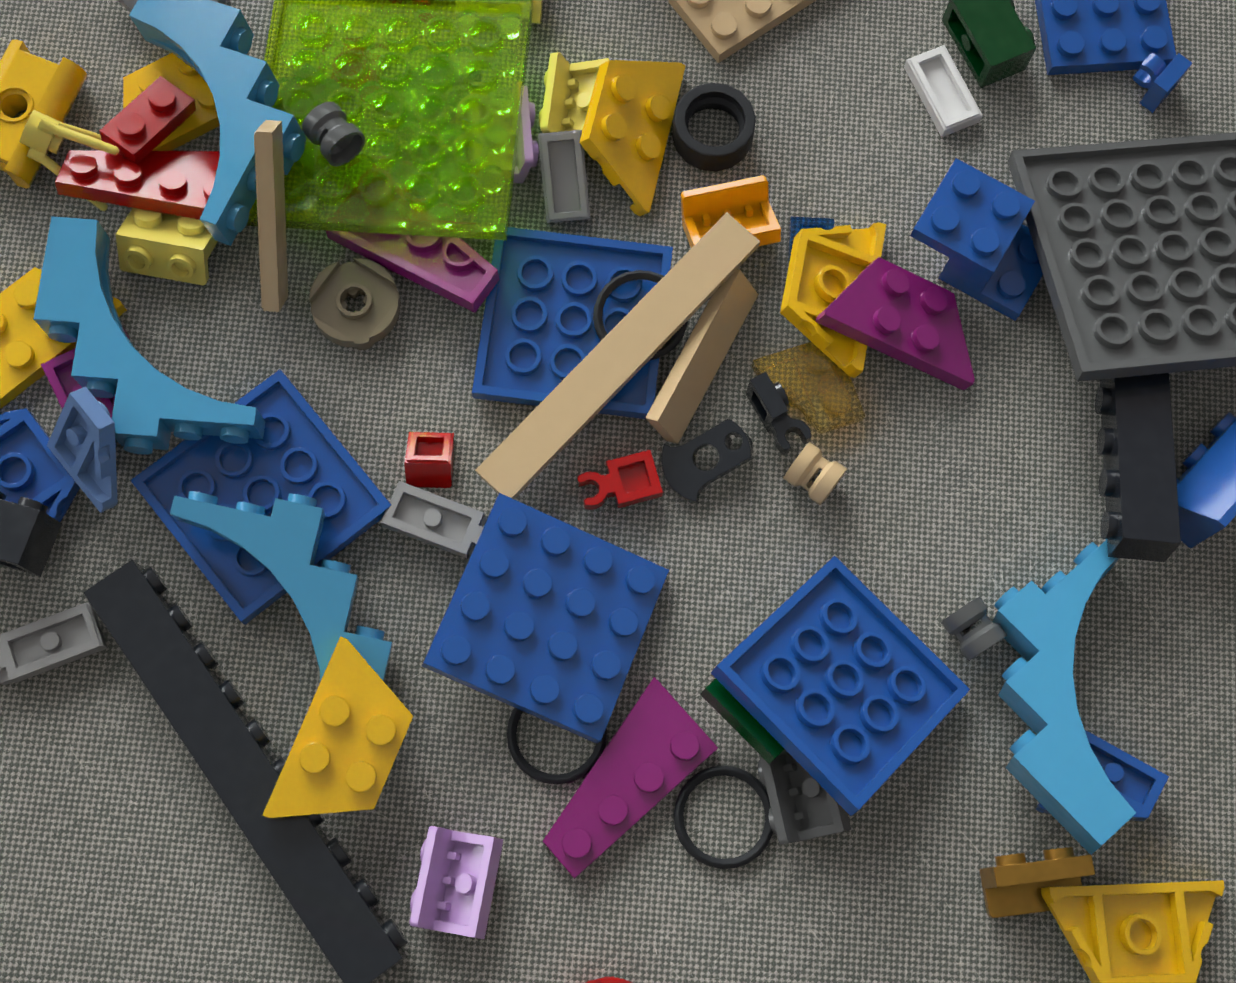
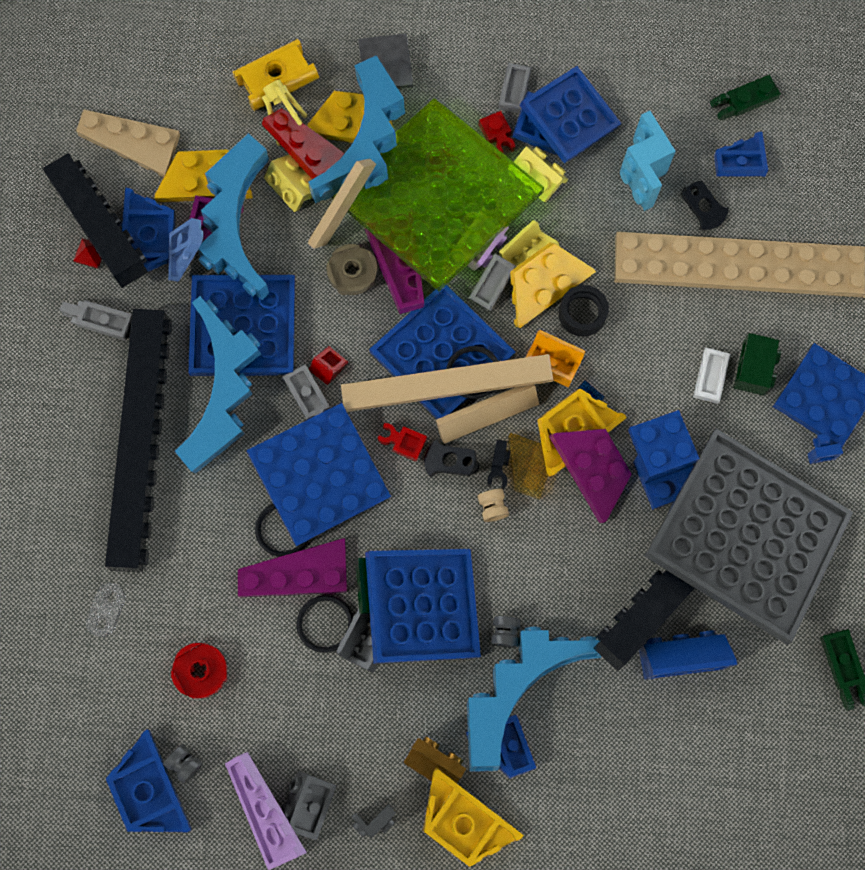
camera: 40 degrees right, 0 degrees up
(148, 120) = (326, 119): red plate -> none
(337, 138) = (399, 185): dark grey wheel -> none
(342, 743) = (186, 457): yellow wing -> none
(455, 882) = (186, 555): lavender bracket -> none

